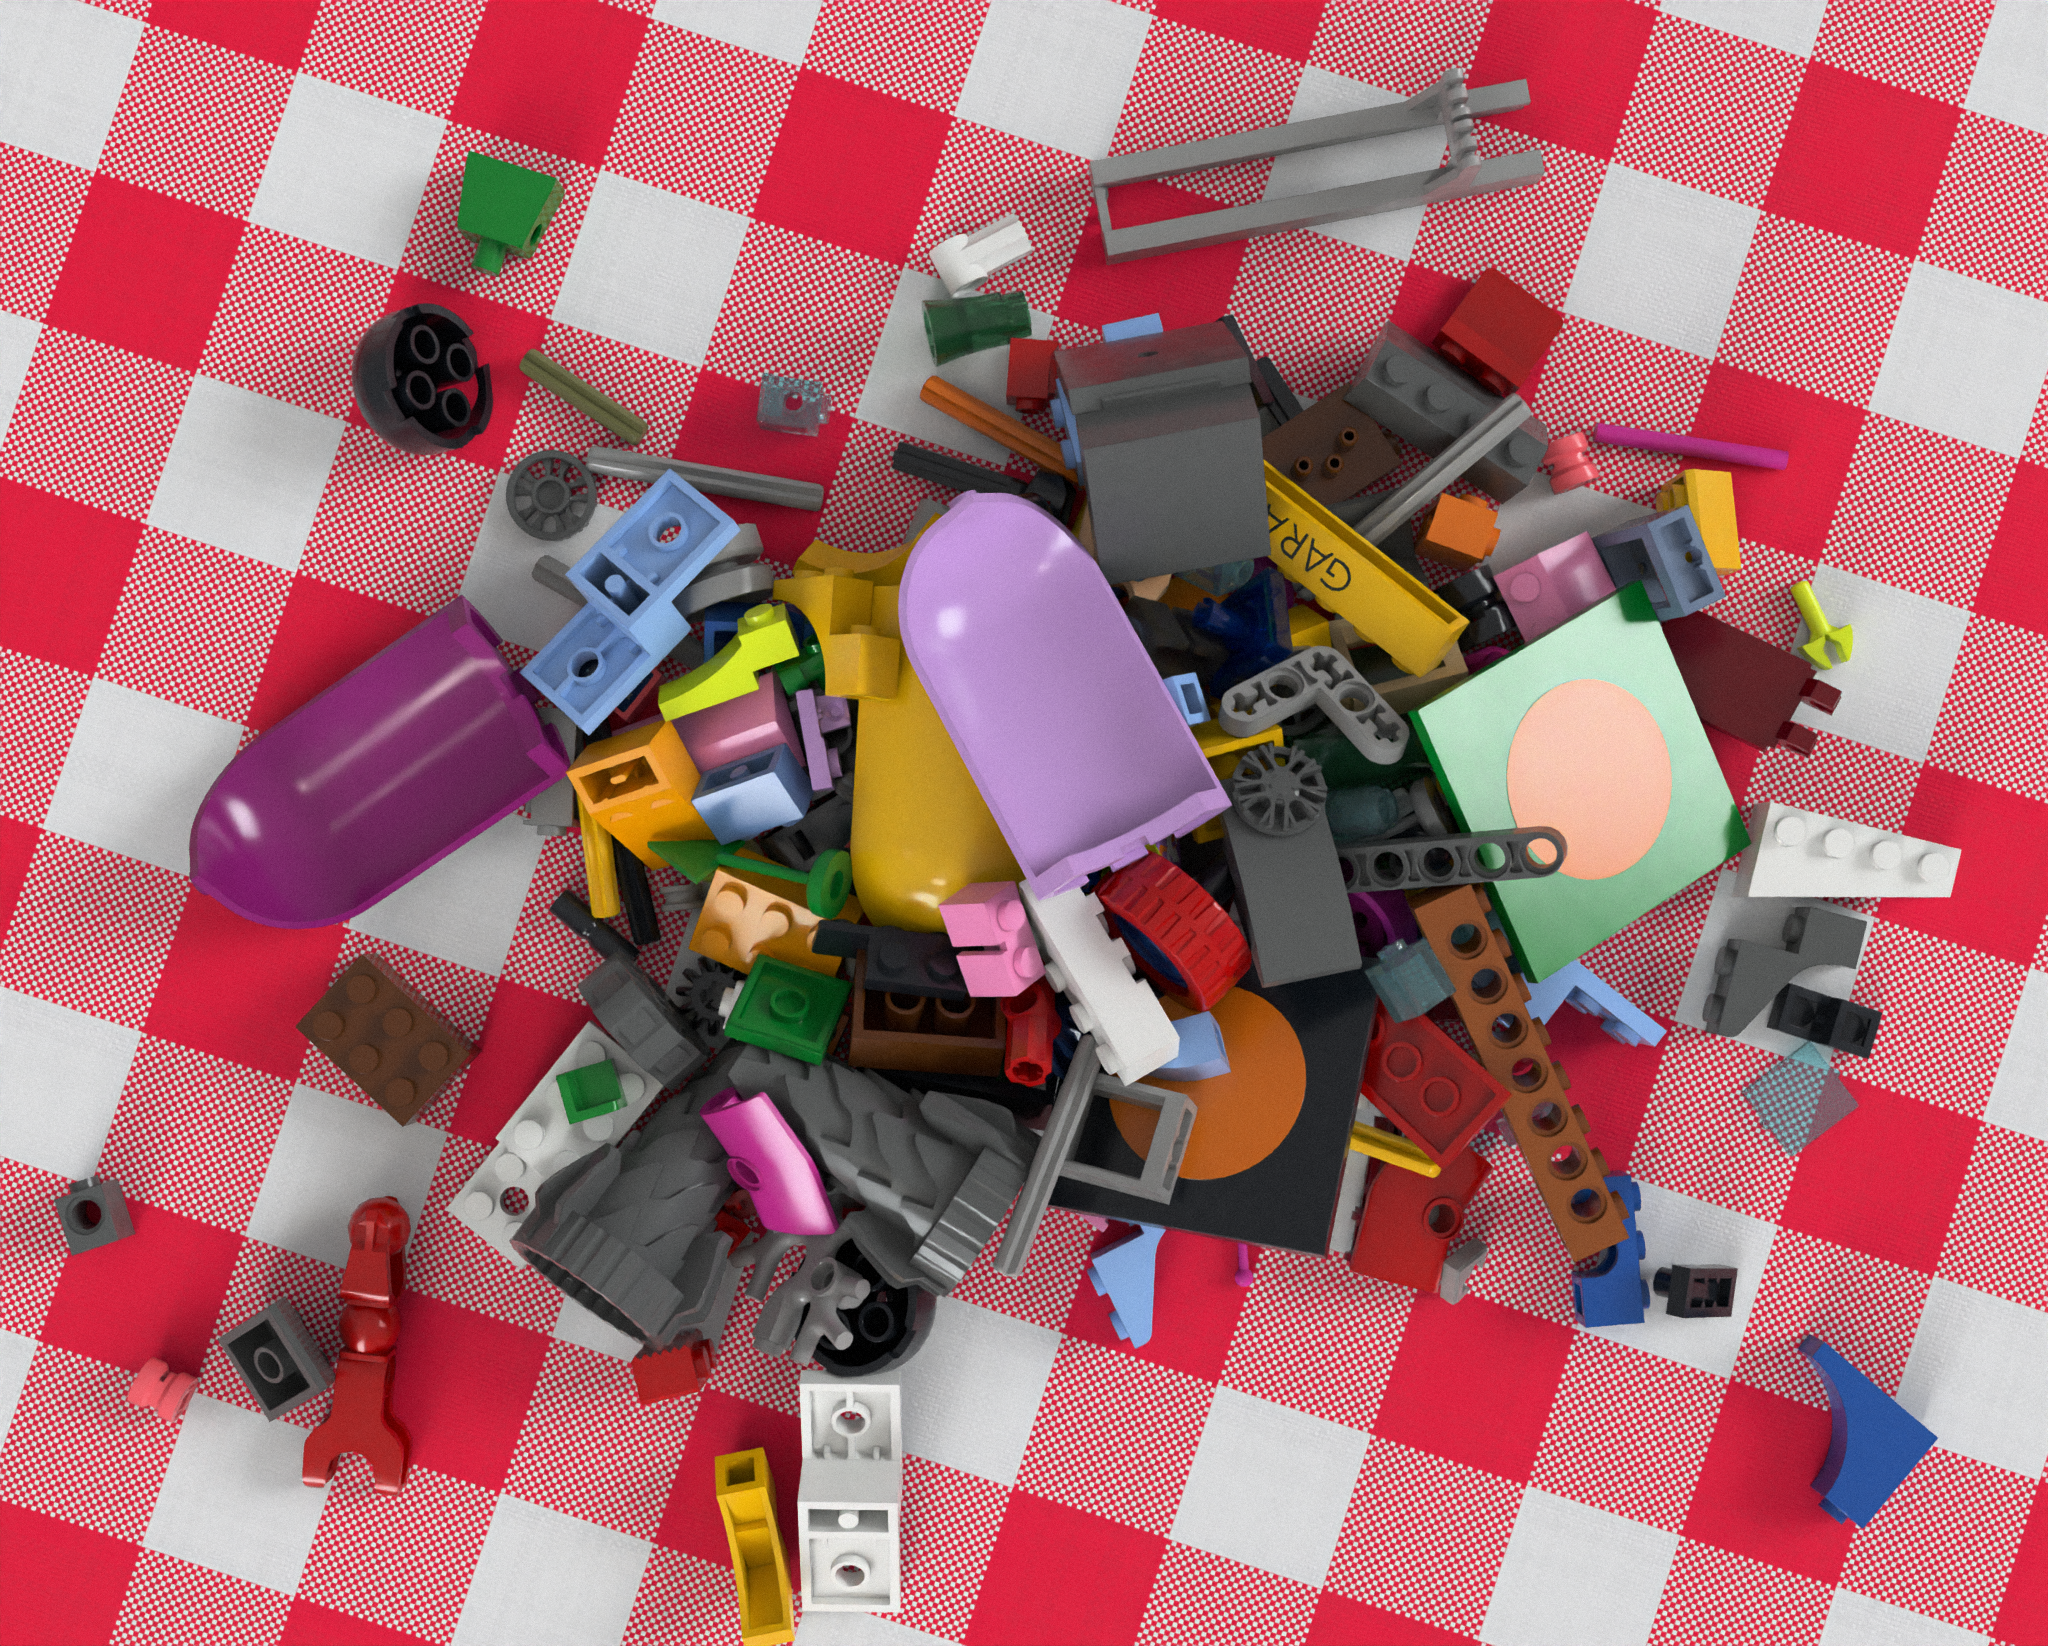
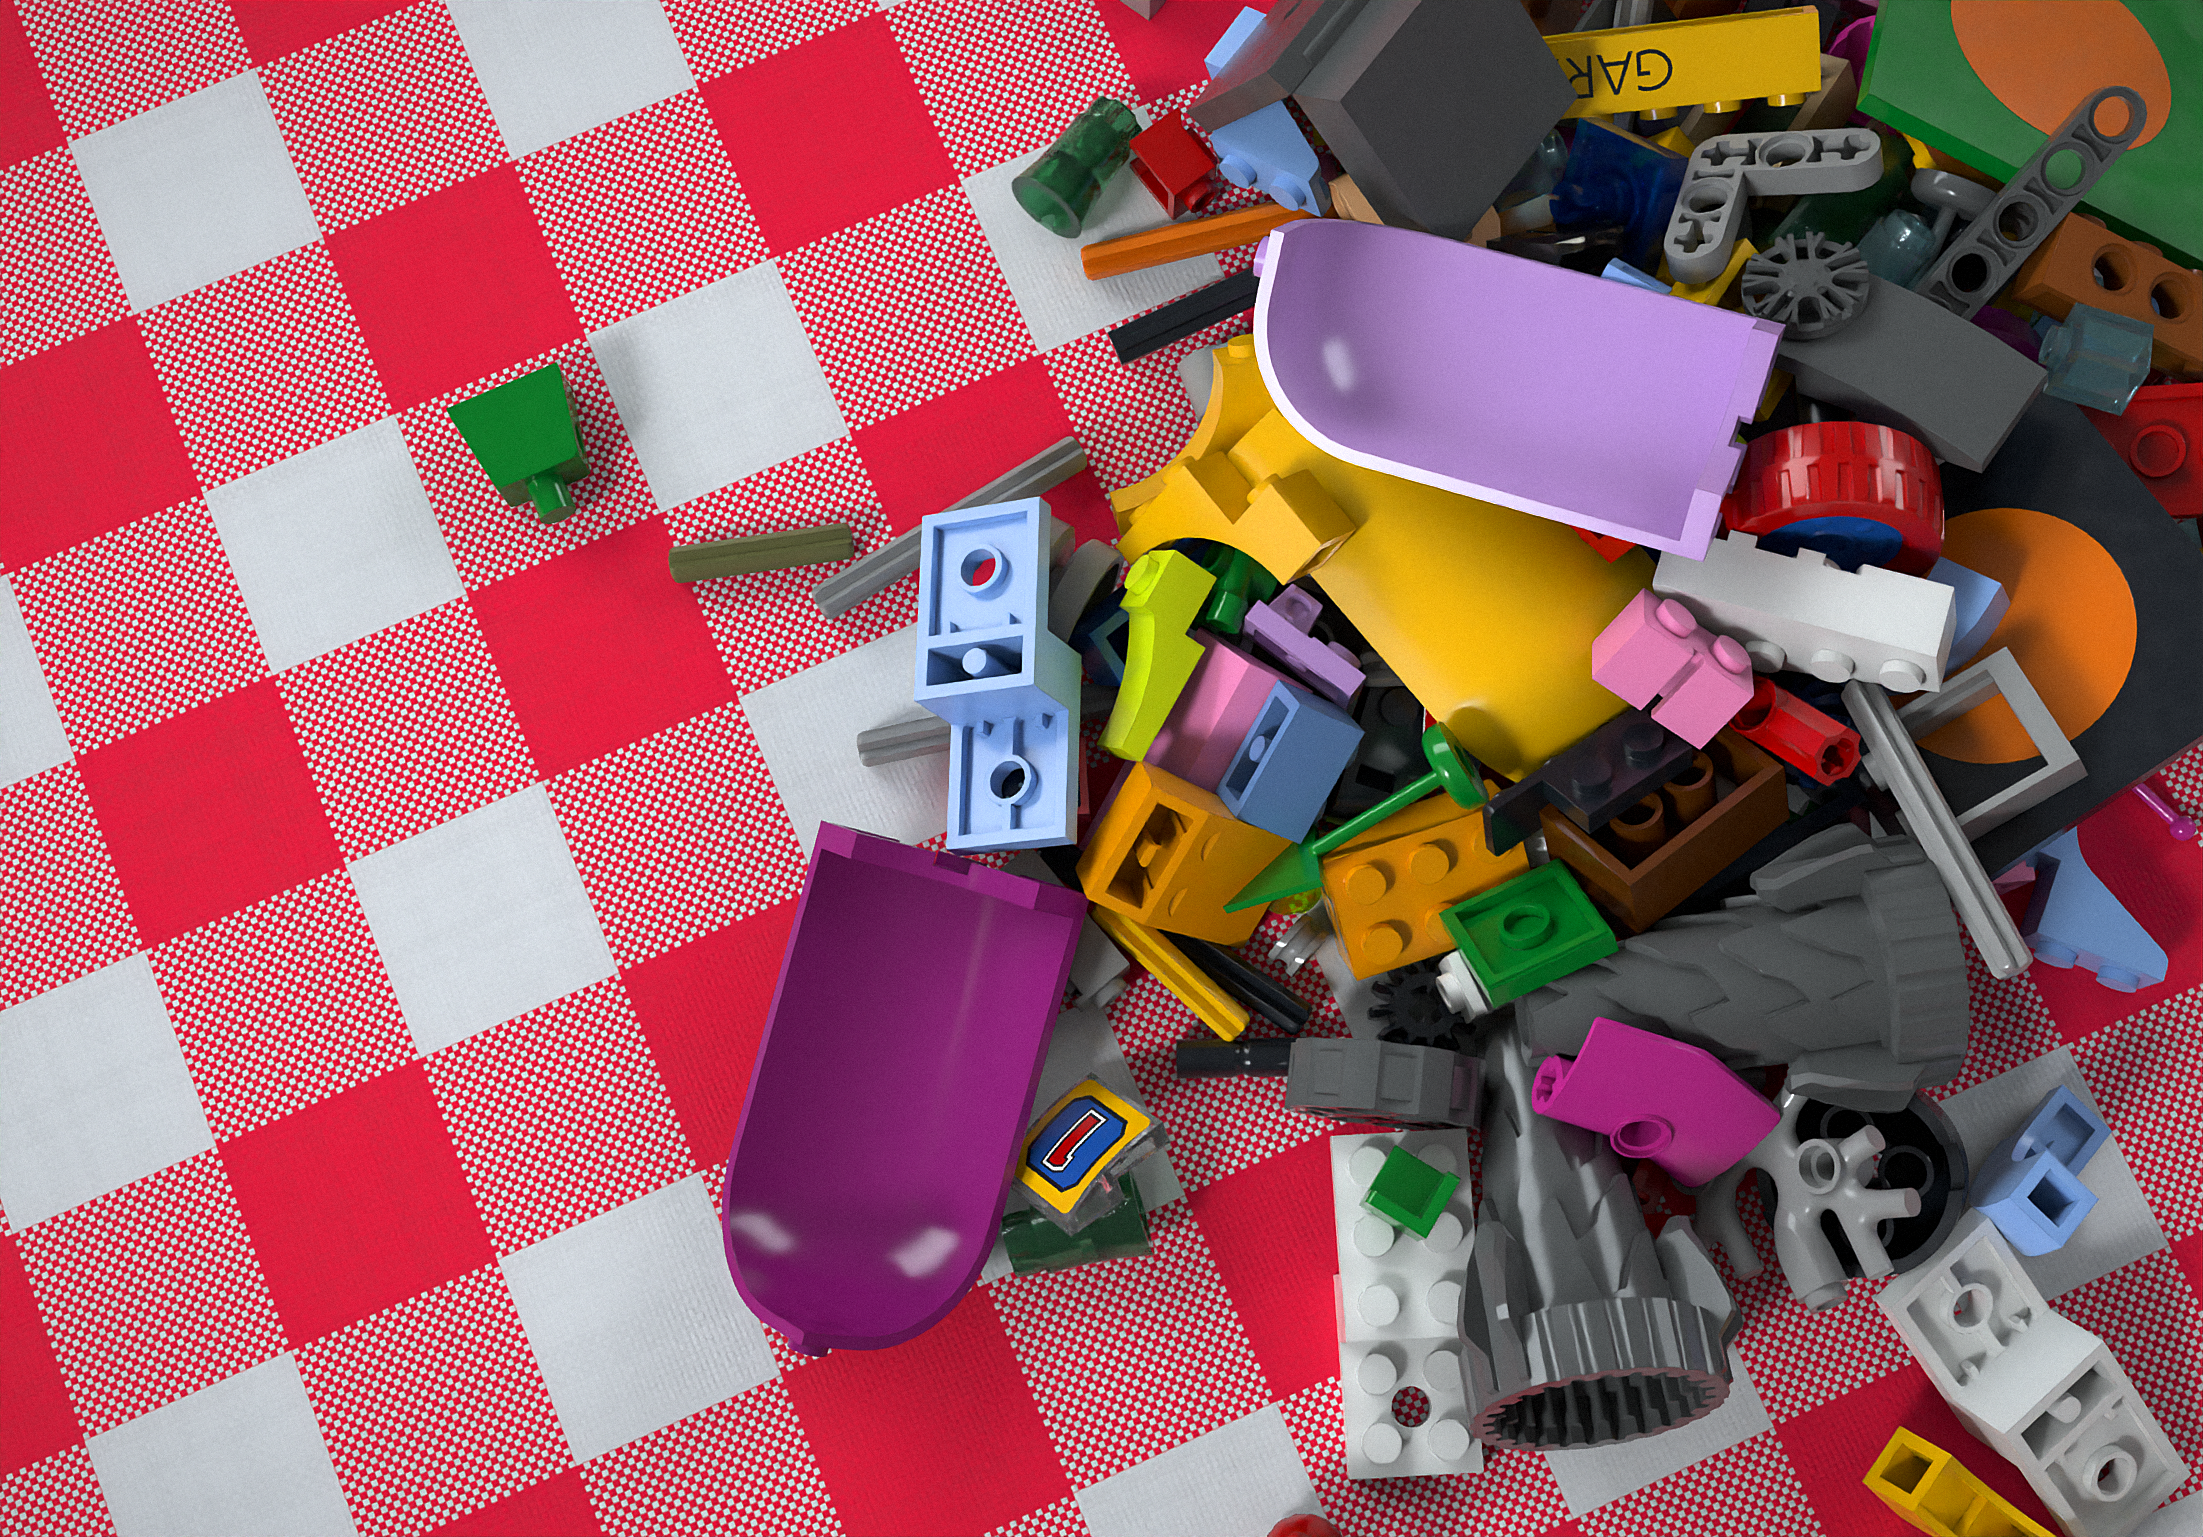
camera: 40 degrees left, 10 degrees down
(388, 1038) = (1135, 1352): reddish brown brick -> none
(403, 366) = (564, 668): black cylinder -> none
(420, 945) = (1040, 1245): none -> clear green plant
(452, 904) = (1081, 1150): none -> slope
(551, 495) = (813, 672): dark grey wheel -> none
(675, 1369) = (1745, 1428): red brick -> none
(775, 416) = (968, 404): clear light blue brick -> none
(955, 1383) = (2031, 1176): none -> light blue arch
(969, 260) = (1022, 115): white piece -> none

